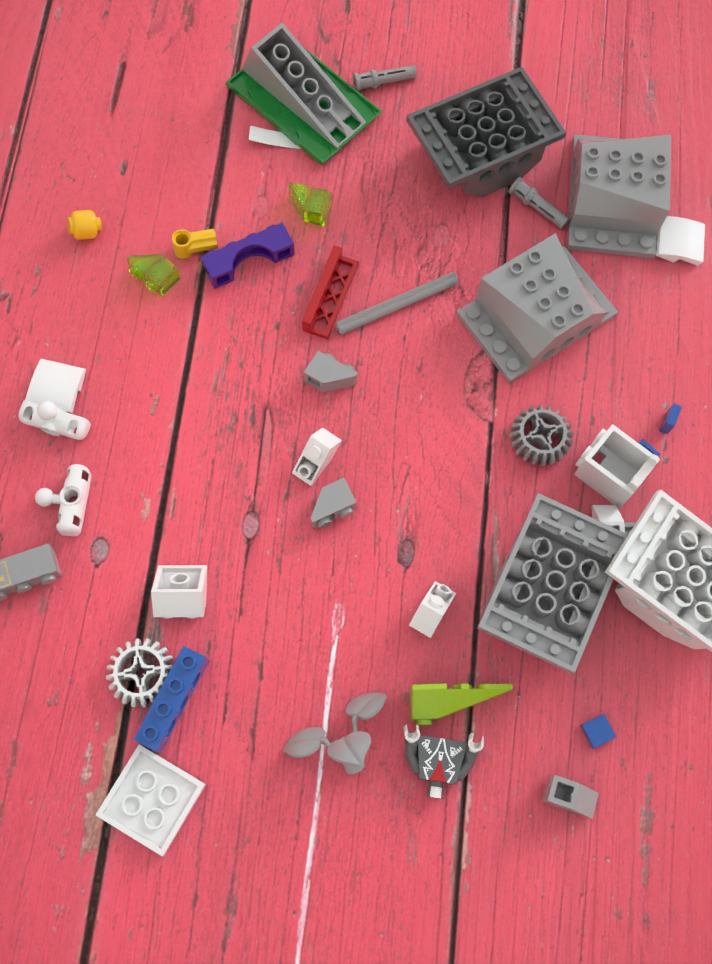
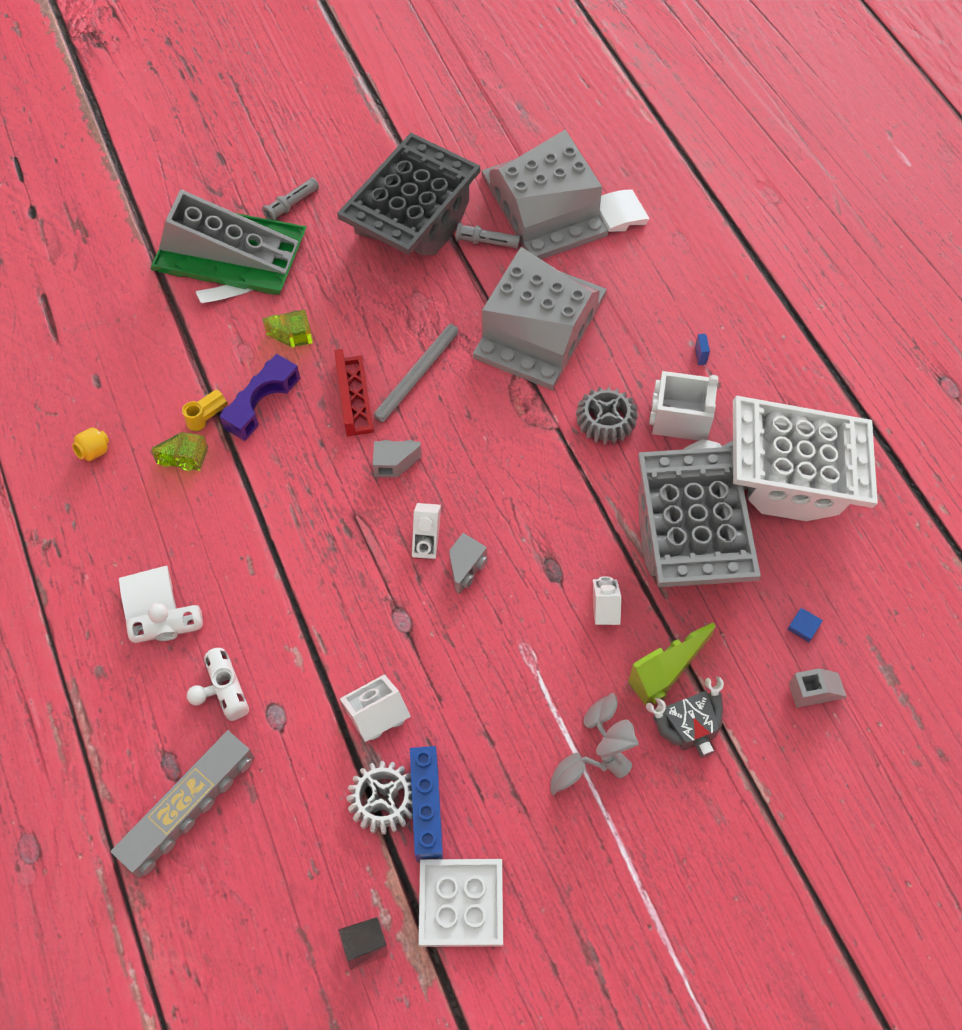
camera: 25 degrees left, 10 degrees down
(49, 788) = (363, 942): none -> clear smoke piece

